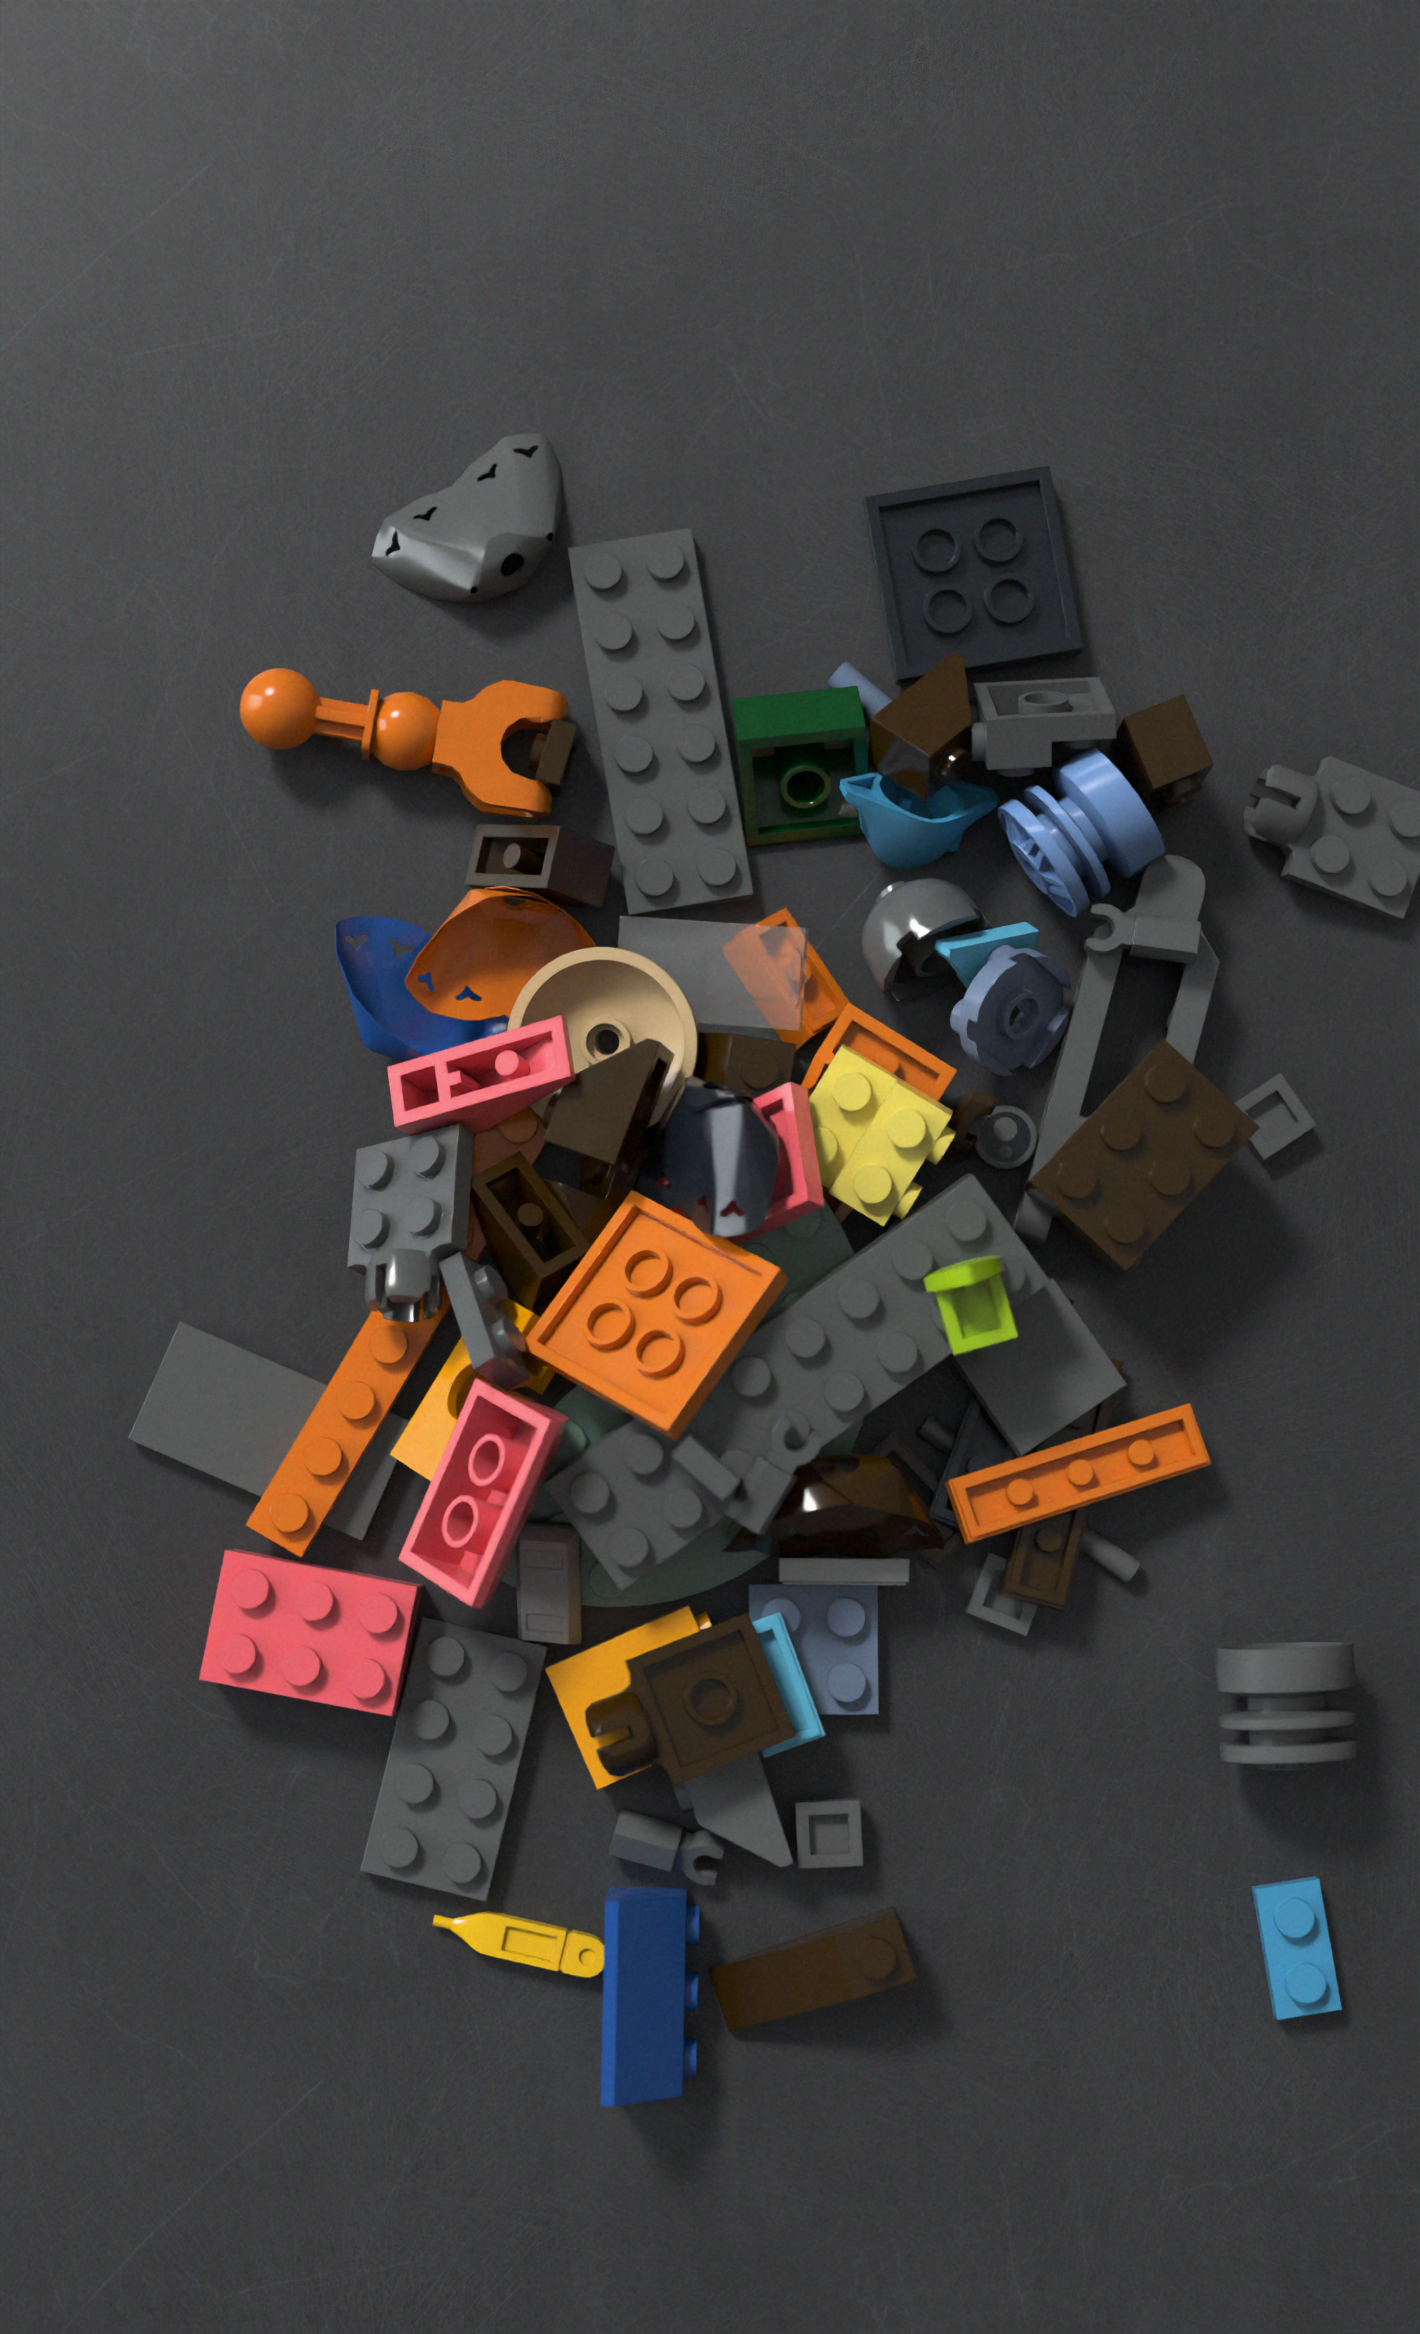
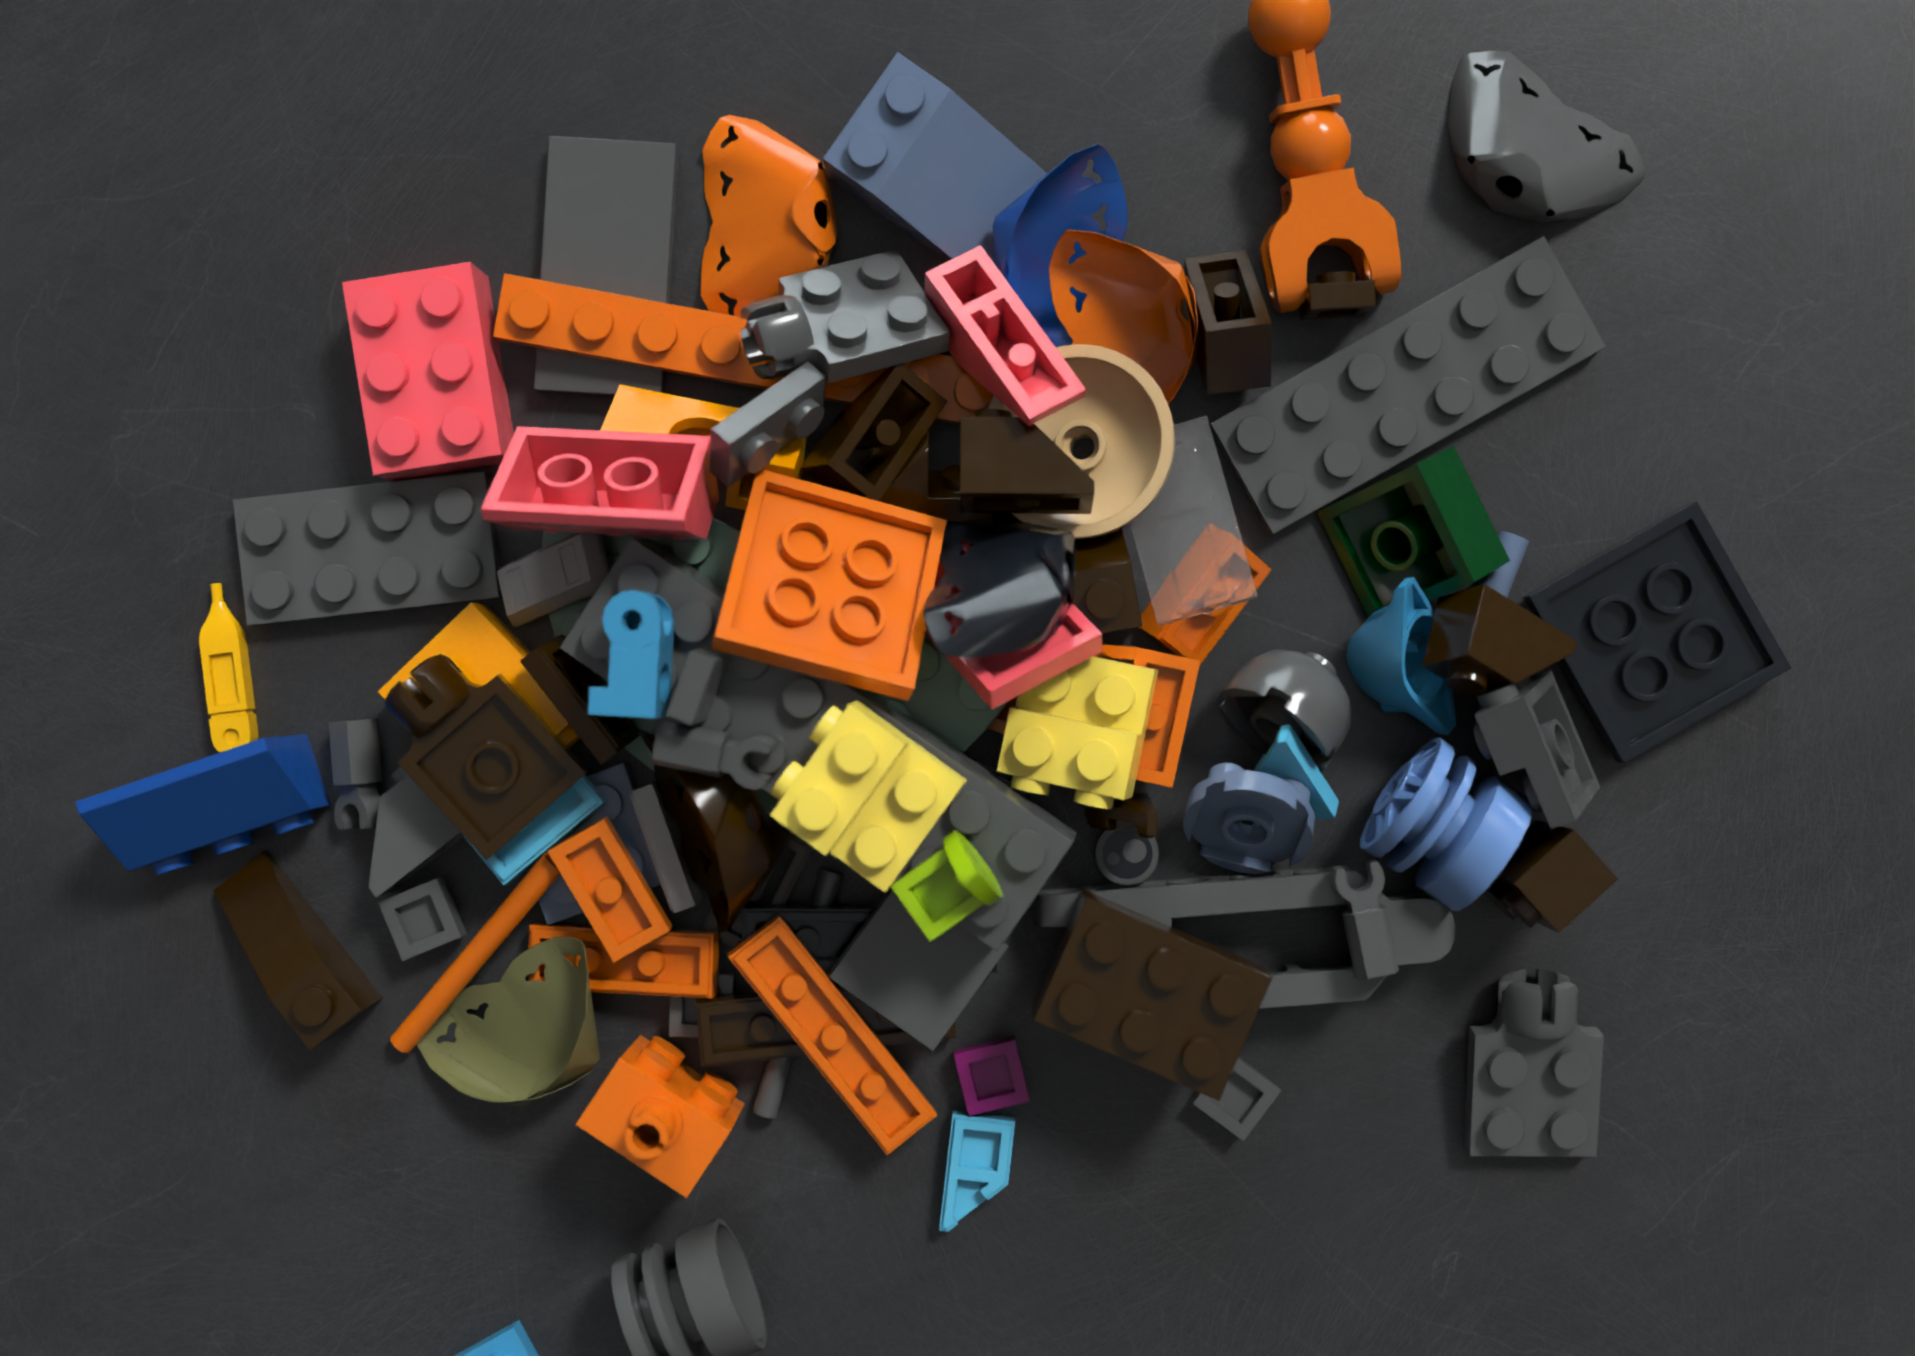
camera: 65 degrees right, 5 degrees up
(281, 1262) = (764, 216): none -> orange piece
(292, 1086) = (929, 162): none -> sand blue slope
(642, 1503) = (639, 659): none -> dark azure leg
(674, 1596) = (567, 686): none -> dark brown tile
(861, 1347) = (865, 793): none -> light yellow plate
(865, 1634) = (610, 889): none -> orange plate
(881, 1791) = (475, 954): none -> orange bar
(937, 1653) = (672, 965): none -> orange tile
(976, 1767) = (531, 1033): none -> olive piece
(1095, 1659) = (662, 1113): none -> orange brick
(1172, 1341) = (991, 1075): none -> magenta tile
(1250, 1387) = (975, 1163): none -> medium azure tile

